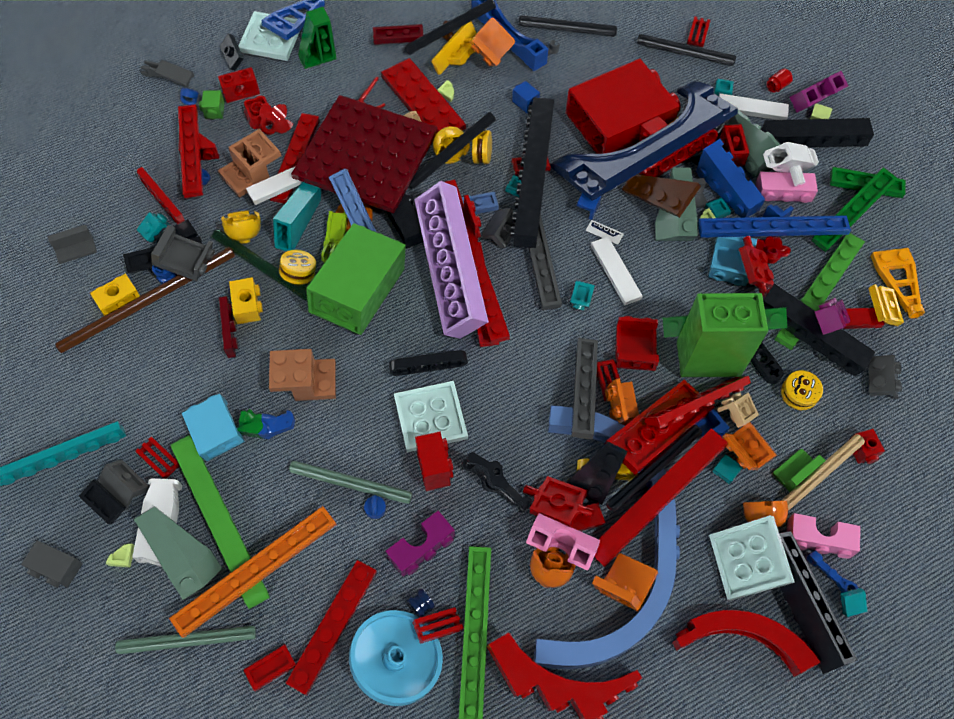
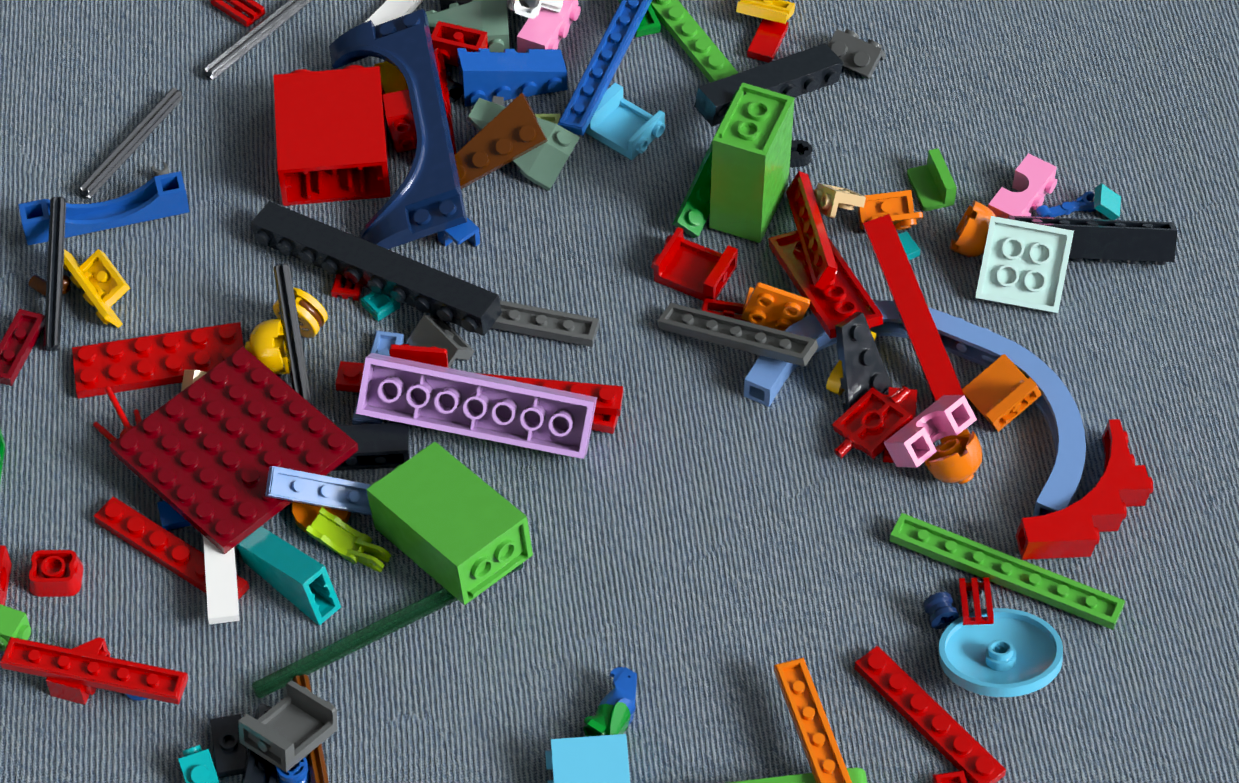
camera: 65 degrees left, 10 degrees down
(160, 196) = (148, 743): red tile -> none
(228, 325) = (433, 714): dark red plate -> none
(242, 225) = (271, 643): yellow cylinder -> none
(243, 290) = (411, 692): yellow brick -> none
(249, 162) = (162, 602): nougat bracket -> none
(275, 116) = (85, 550): red plate -> none
(297, 267) = (381, 596): yellow head -> none
(302, 374) = (563, 639): nougat bracket -> none
(350, 482) = (741, 640): sand green axle -> none
(375, 507) = (790, 623): blue tile -> none
(408, 557) = (859, 564): magenta arch -> none
(428, 363) = (611, 495): black beam -> none
(430, 411) = (691, 519): light aqua plate -> none
(434, 460) = (764, 529): red brick -> none
(447, 91) = (160, 324): yellowish green tile -> none
(492, 42) = (120, 234): orange bracket -> none
(493, 479) = (815, 473): black animal -> none
(523, 95) = (234, 235): blue brick -> none
(582, 295) = (596, 294): teal bracket -> none
(604, 231) = (506, 237): white sticker -> none
(616, 271) = (574, 247): white tile -> none
(653, 468) = (888, 328): black axle -> none
(713, 421) = (845, 236): blue panel -> none
(718, 208) = (540, 103): teal tile -> none
(723, 87) = (349, 18): teal tile -> none
(756, 266) = (666, 101): red plate -> none
(766, 631) = (1110, 290): red arch -> none
(773, 248) = (632, 78): red plate -> none
(775, 211) = (582, 53): blue panel -> none
(801, 390) = (836, 135): yellow head -> none
(824, 470) = (947, 151): tan axle -> none
(832, 315) = (766, 54): magenta arch -> none
(871, 449) = (934, 109): red brick -> none

